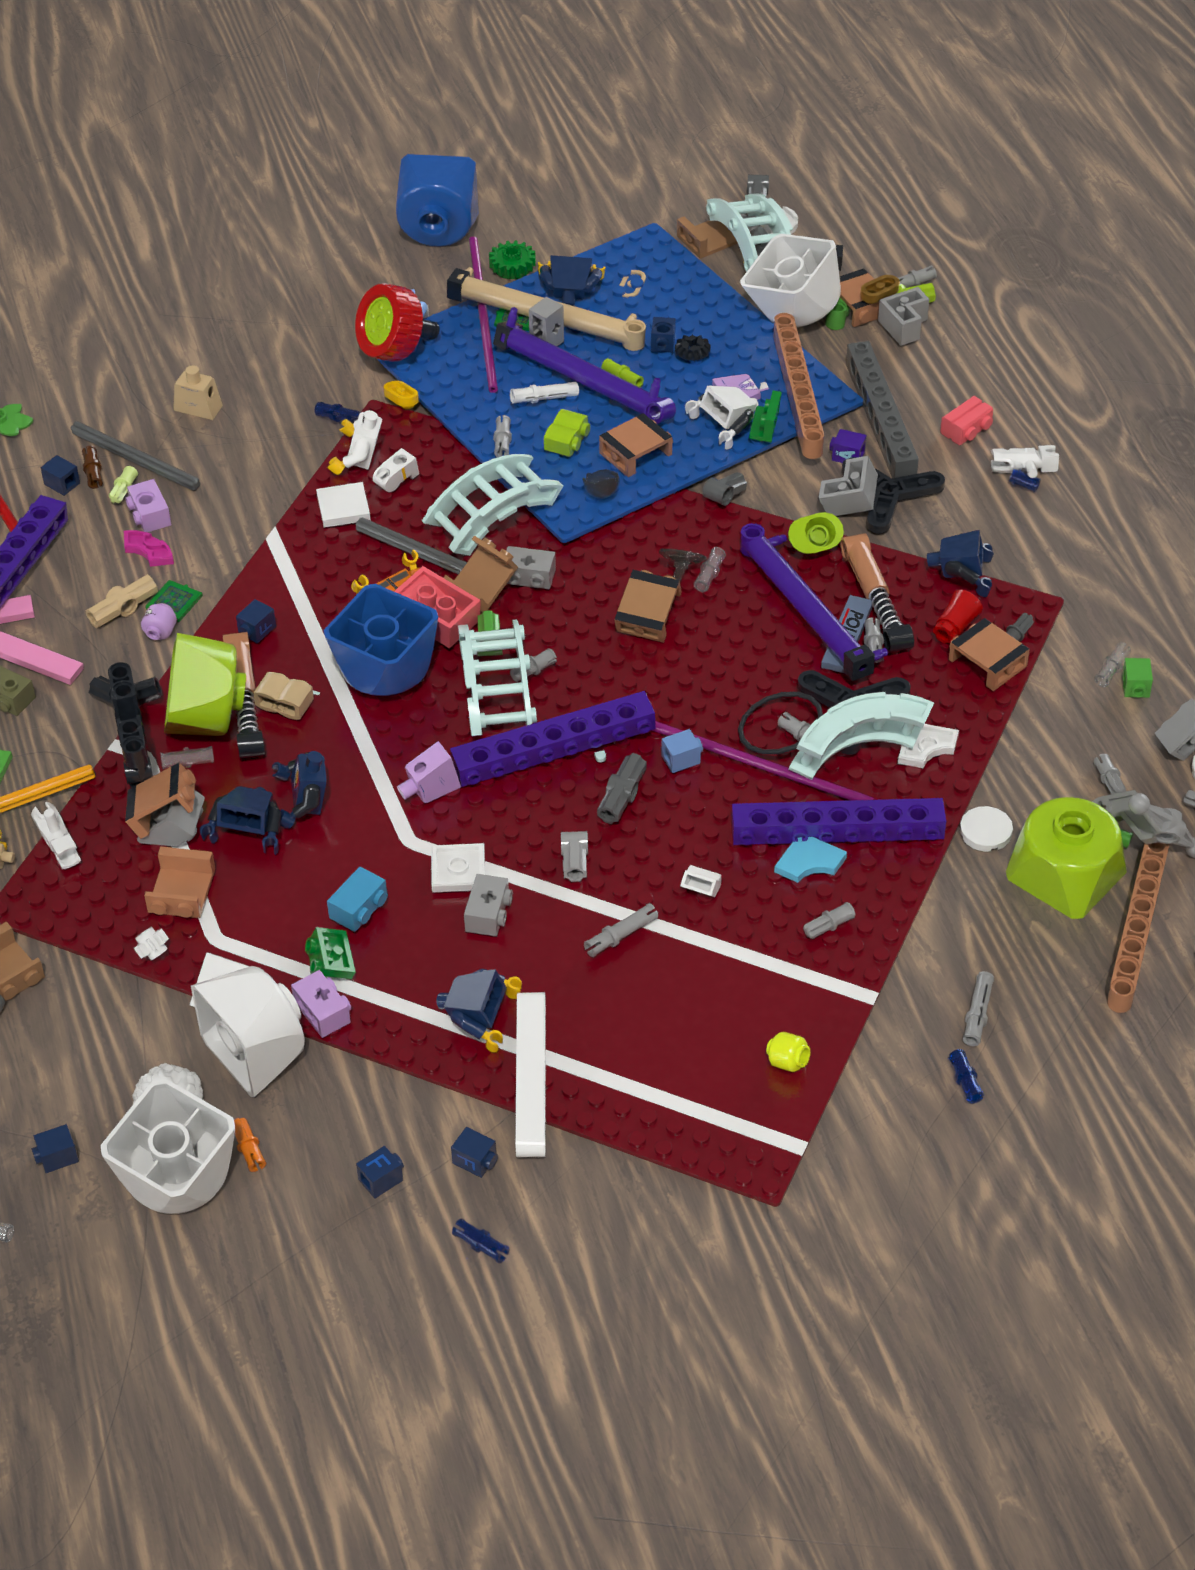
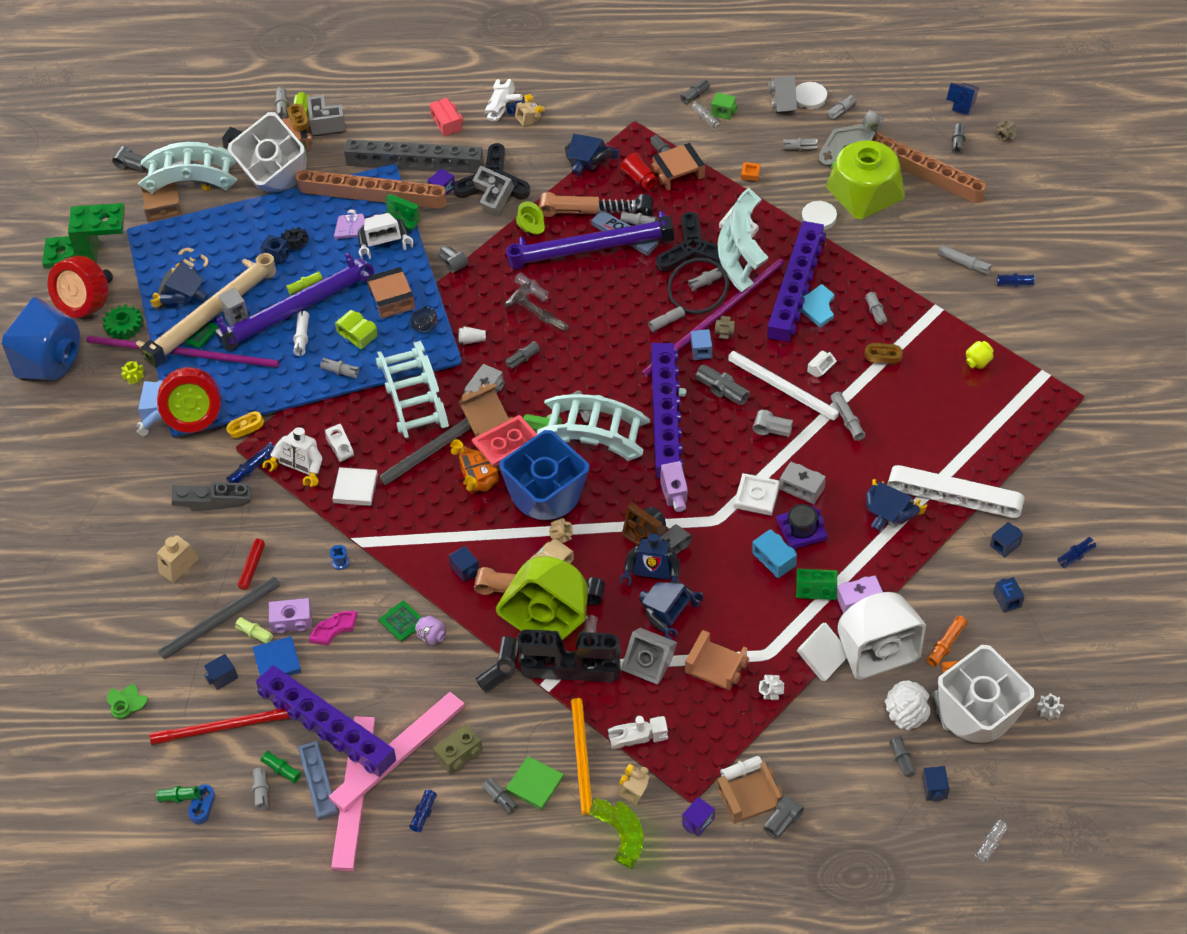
camera: 70 degrees left, 5 degrees up
(36, 949) = (741, 768): none -> white axle
(92, 467) = (220, 648): reddish brown pin -> none
(92, 1108) = (902, 756): none -> dark grey axle
(93, 515) = (278, 653): none -> blue tile
(121, 601) = (392, 653): tan piece -> none
(157, 792) = (642, 649): nougat panel -> none
(205, 1253) = (1050, 707): none -> white gear
(213, 458) = (251, 564): none -> red axle
(240, 521) = (339, 557): none -> blue bush
(276, 1117) = (943, 646): none -> orange pin
(290, 395) = (217, 496): none -> dark grey slope
(335, 687) = (561, 530): none -> tan gear
(350, 800) = (677, 538): none -> dark grey piece
(356, 762) = (642, 523): none -> reddish brown piece
(417, 917) = (802, 523): none -> piece
(439, 288) = (132, 372): none -> neon yellow gear
(533, 203) = (78, 286): none -> red wheel
(596, 590) = (522, 355): none -> dark grey axle
(605, 534) = (471, 335): none -> white cone
(610, 183) = (83, 232): none -> green bracket
(646, 605) = (560, 324): medium nougat panel -> none
(649, 852) = (783, 385): none -> white axle
(712, 708) = (669, 317): none -> light grey piece
(719, 766) = (724, 327): none -> dark tan gear
(749, 947) = (883, 353): none -> pearl gold plate
(1018, 492) = (528, 112): none -> tan piece
(1029, 735) = (750, 171): none -> orange plate
(1152, 644) = (694, 91): none -> dark grey axle

